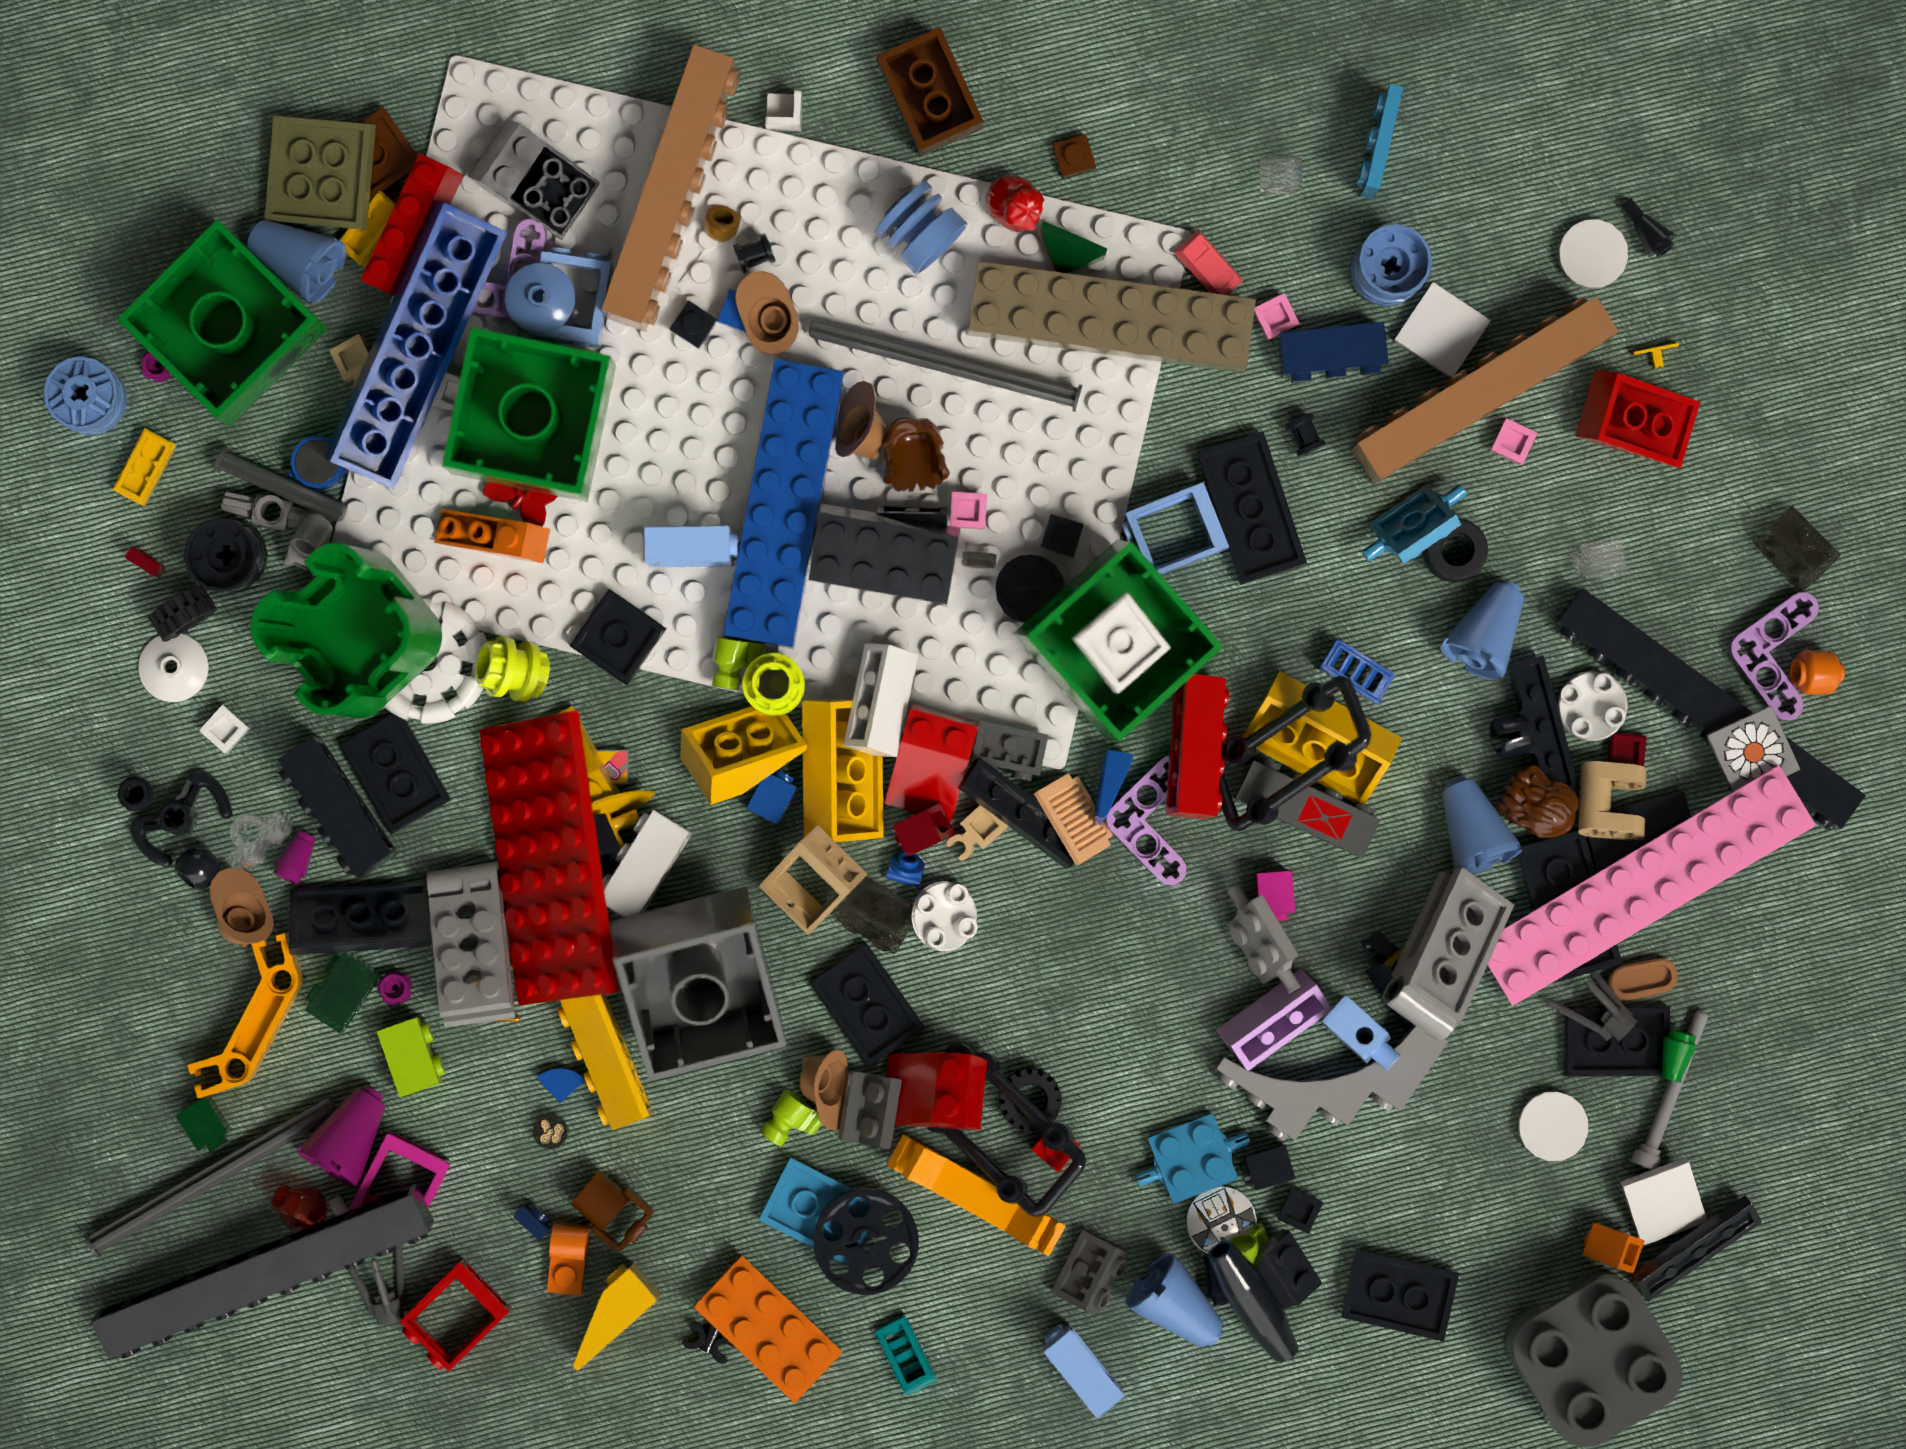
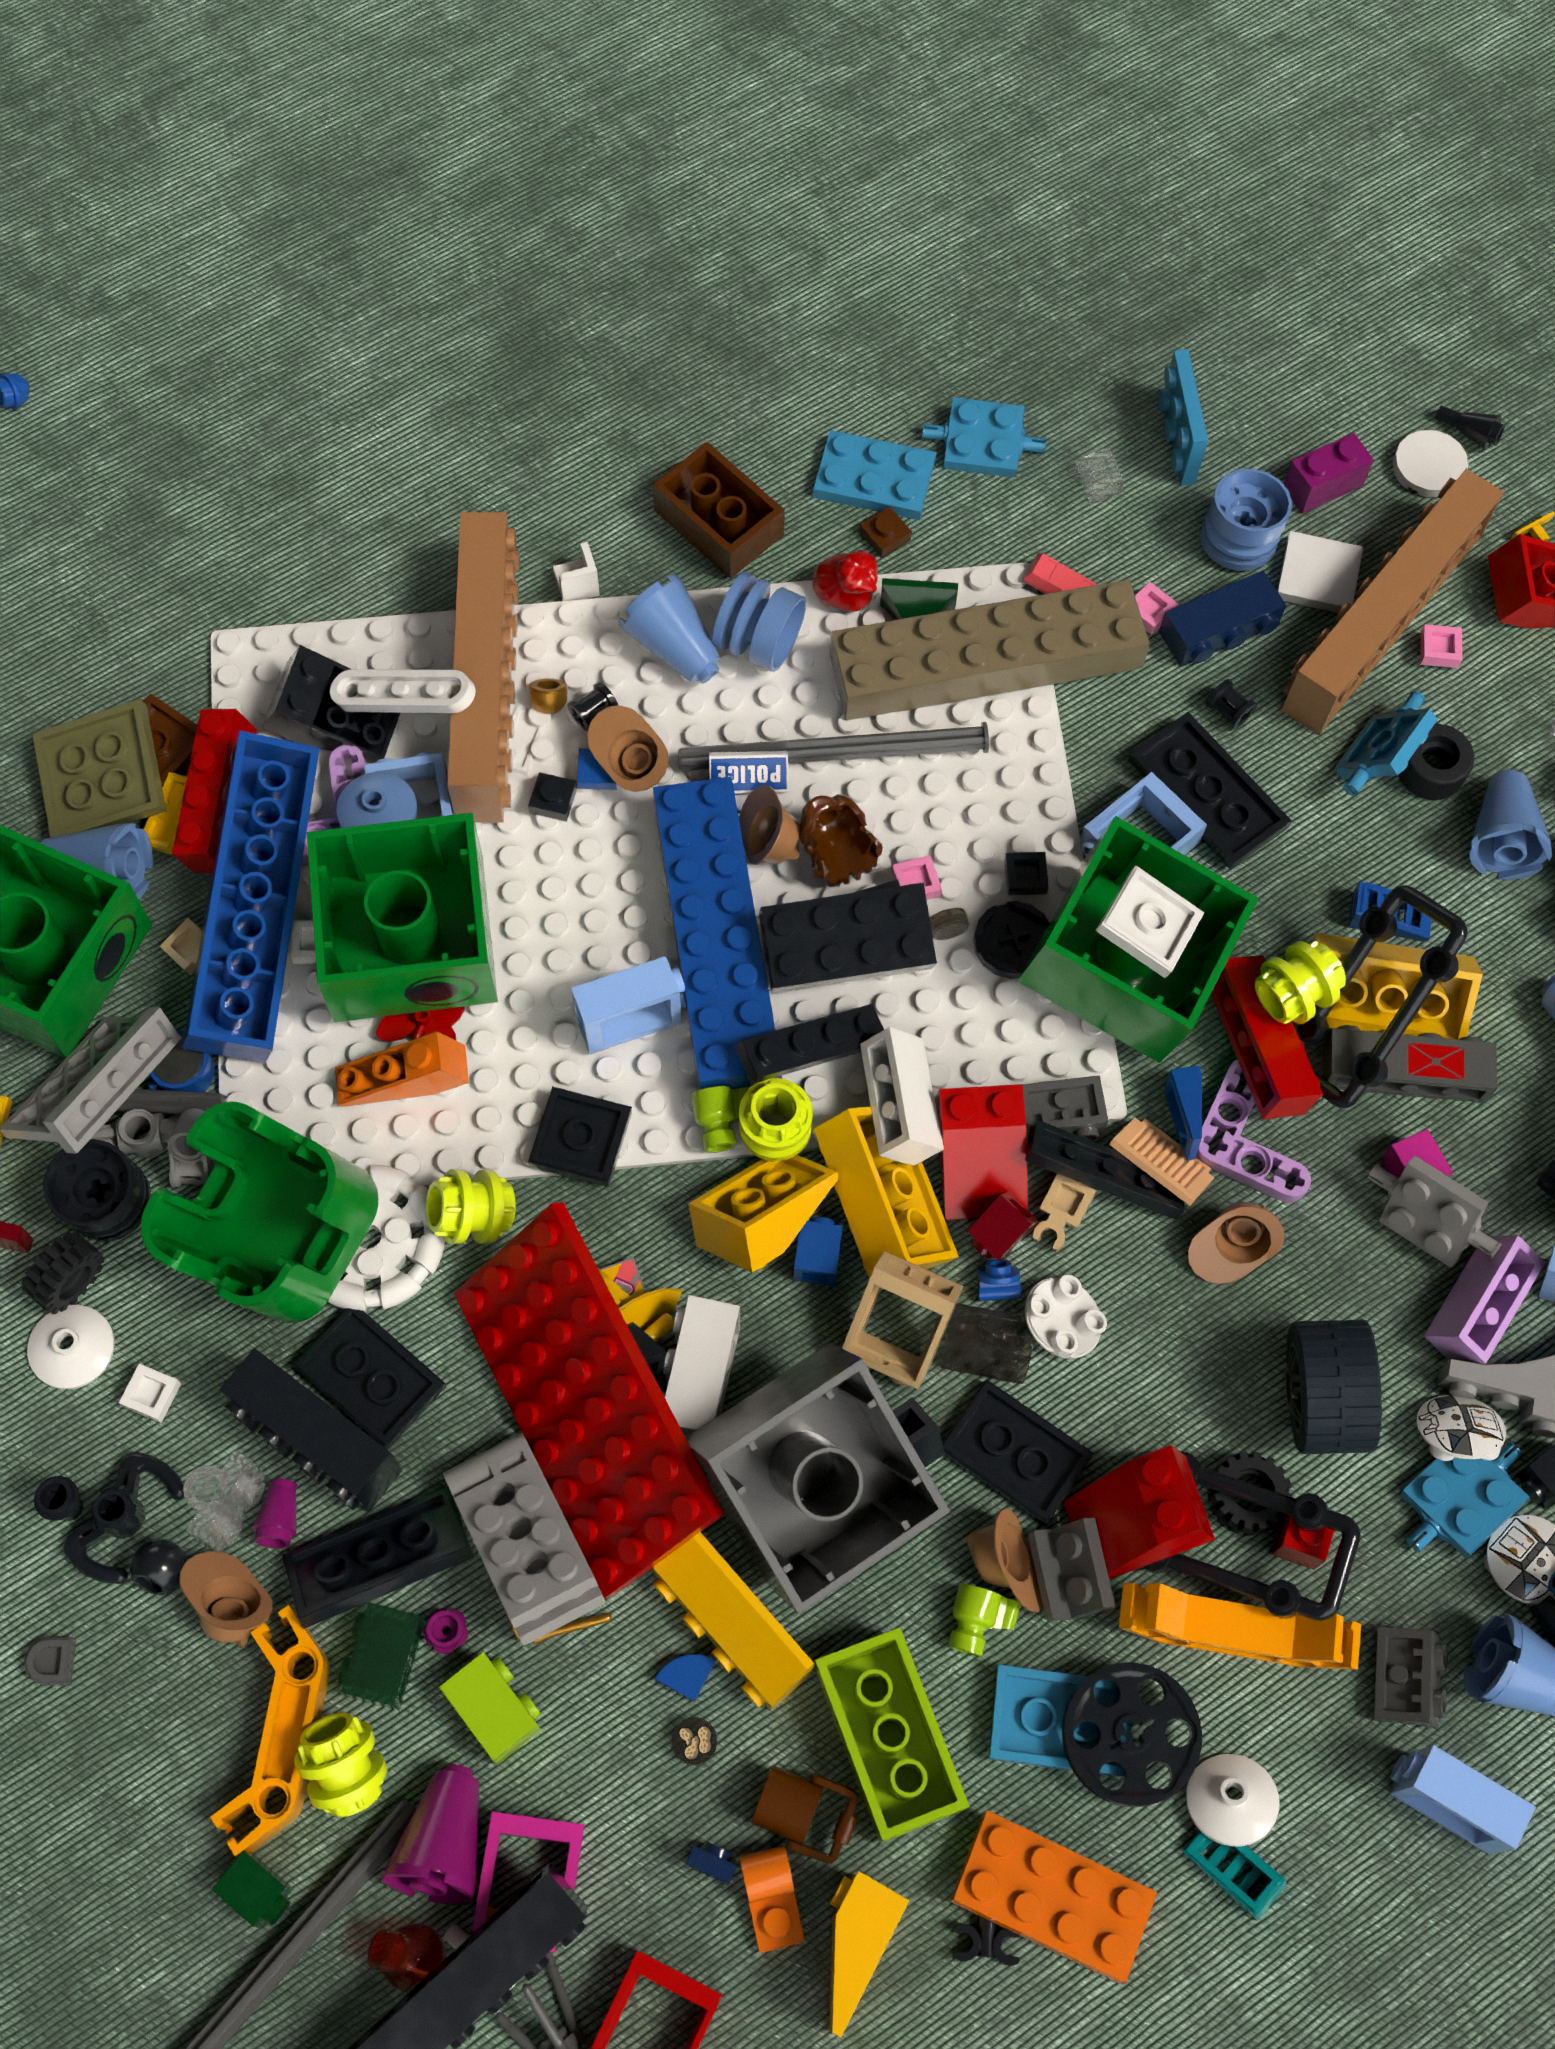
camera: 15 degrees left, 20 degrees down
(100, 908) = (51, 1661): none -> dark grey tile
(255, 475) = (94, 1080): none -> light grey fence
(290, 1061) = (340, 1764): none -> neon yellow piece
(590, 205) = (402, 691): none -> white plate
(691, 1180) = (890, 1735): none -> lime brick
(788, 970) = (920, 1431): none -> black brick
(824, 632) = (807, 1043): none -> black plate
(846, 208) = (672, 630): none -> medium blue cone
(864, 362) = (751, 769): none -> tile
(918, 1326) = (1229, 1820): none -> white dish
(1087, 93) = (874, 474): none -> dark azure plate
(1101, 906) = (1235, 1243): none -> medium nougat piece
(1119, 1048) = (1333, 1387): none -> black wheel
(1200, 88) = (984, 437): none -> dark azure plate
(1211, 1109) = (1461, 1428): none -> white dish
(1235, 721) = (1295, 985): none -> neon yellow piece
(1490, 237) = (1328, 473): none -> magenta brick

